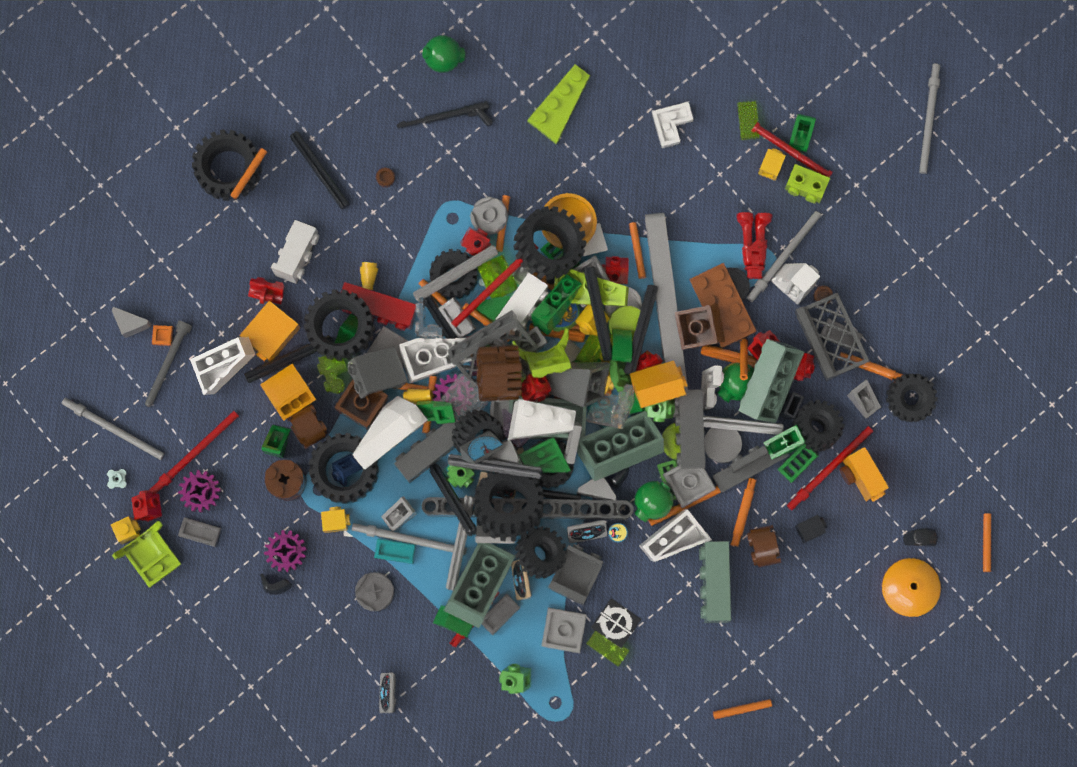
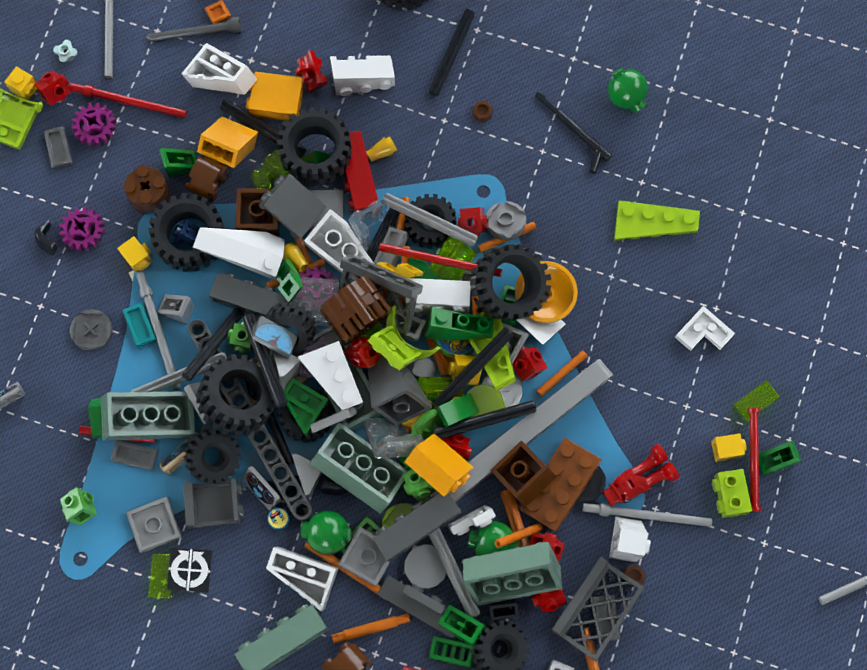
camera: 55 degrees right, 5 degrees down
(486, 317) = (402, 269): none -> yellow slope

